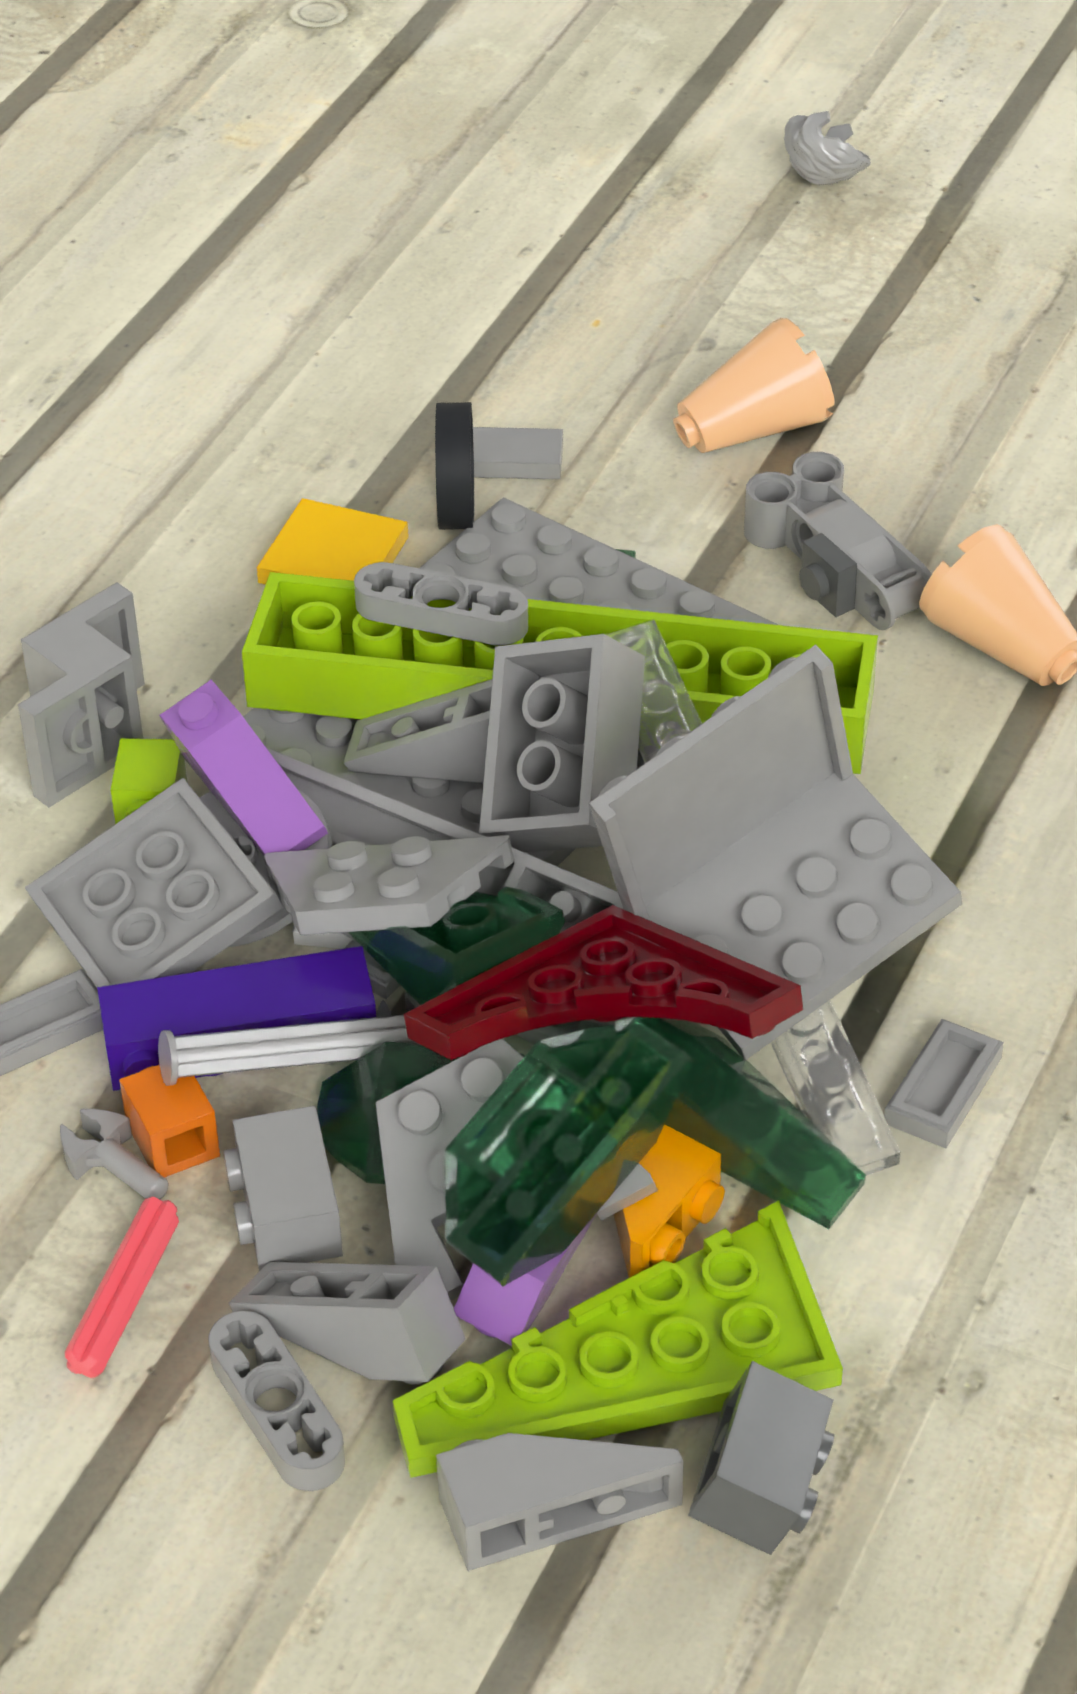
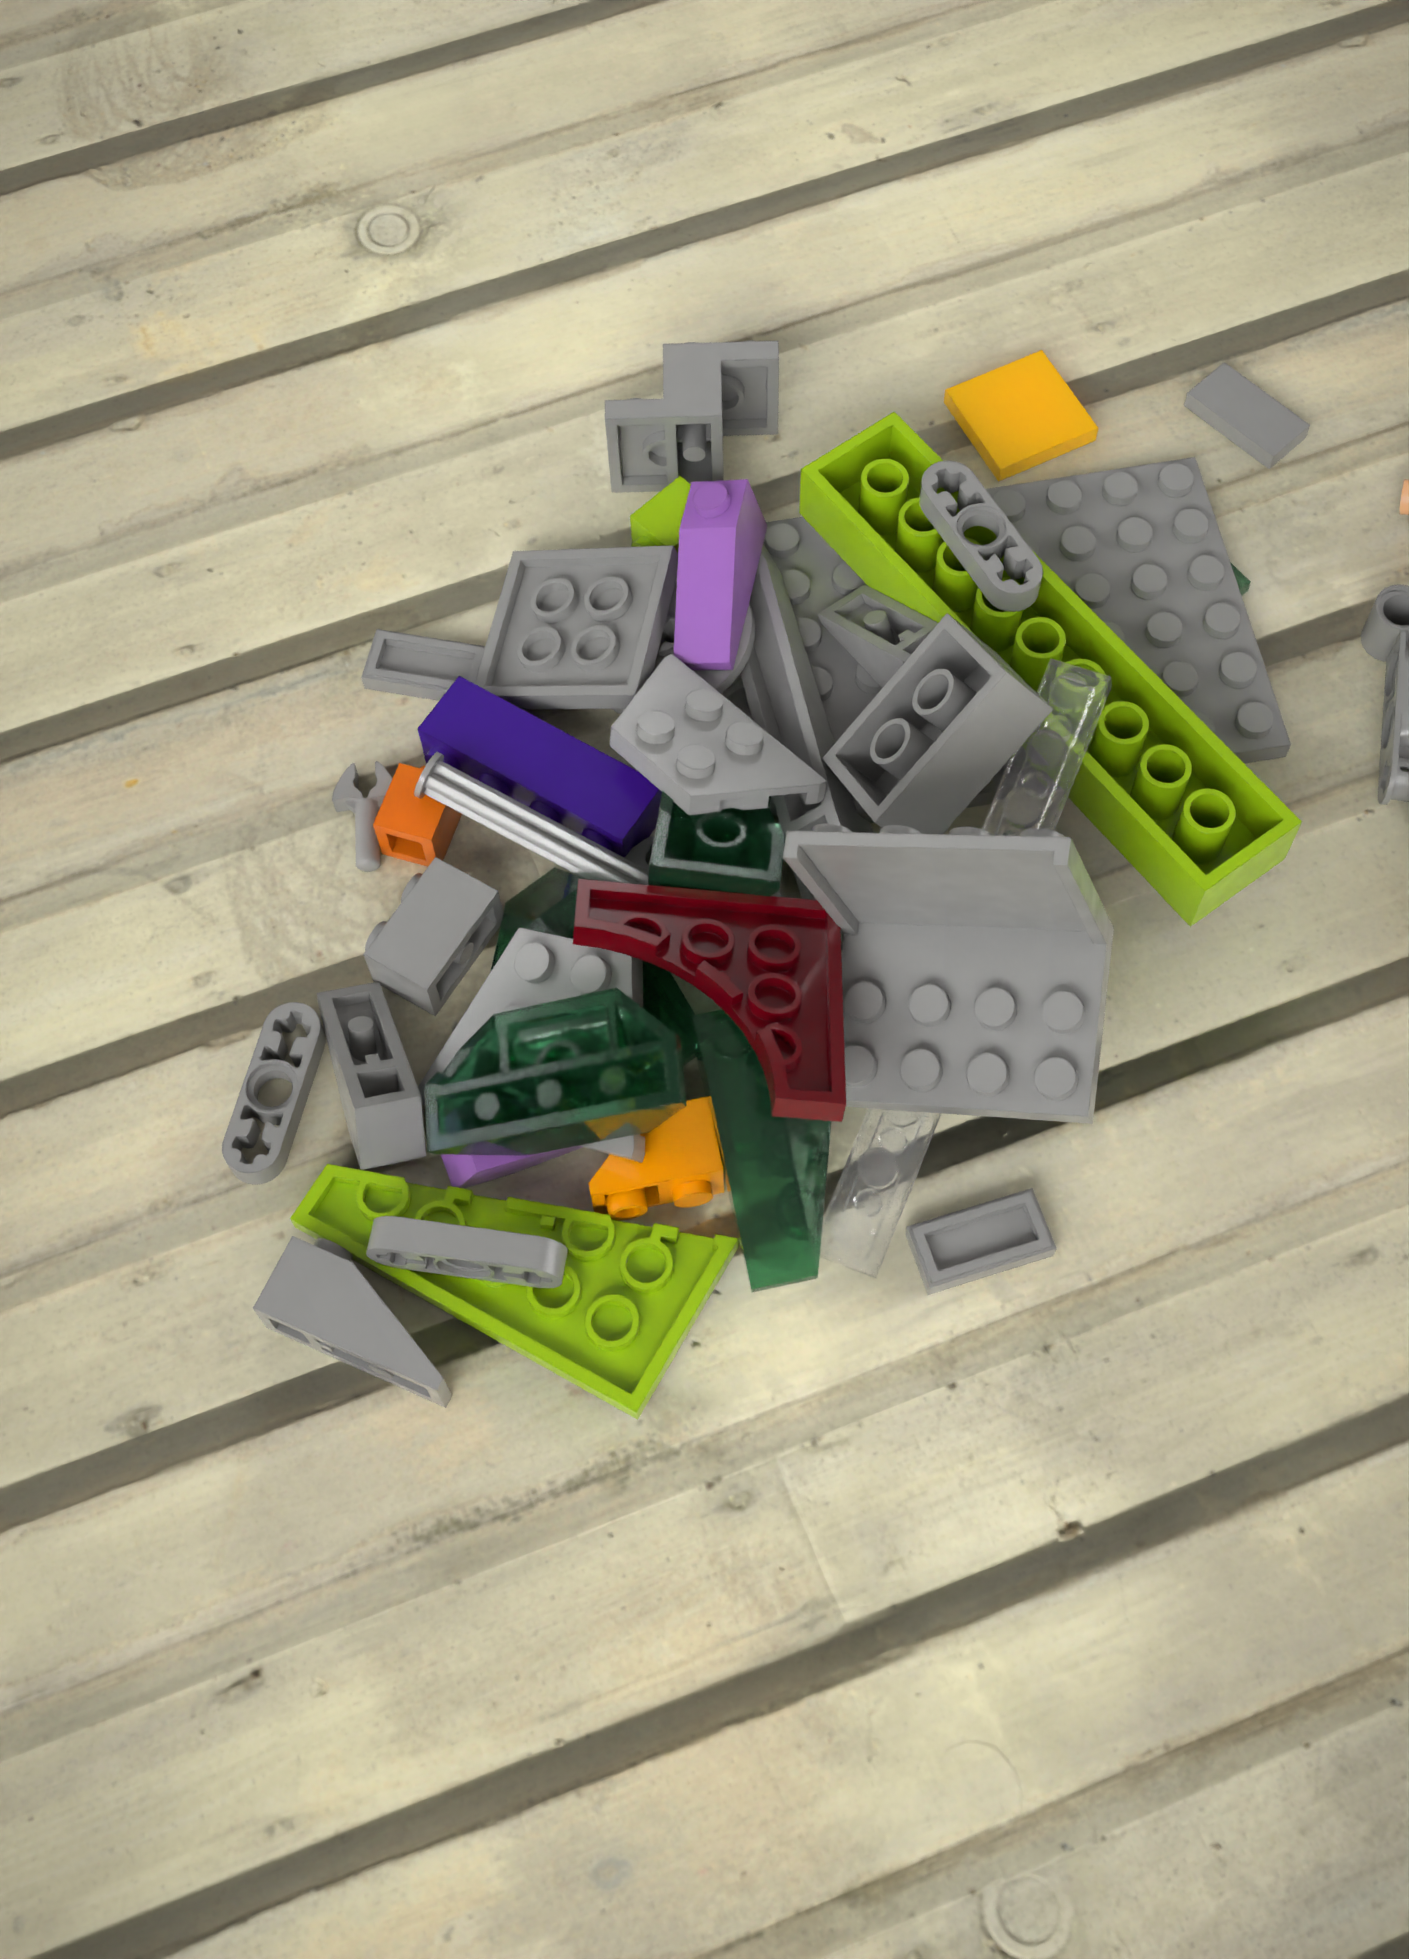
camera: 45 degrees right, 20 degrees up
(121, 1287) = (271, 921): coral axle -> none
(454, 465) = (1181, 372): black tyre -> none
(592, 1353) = (467, 1252): none -> light grey beam
(764, 1459) = (502, 1435): brick -> none
(828, 575) = (1374, 719): dark grey plate -> none

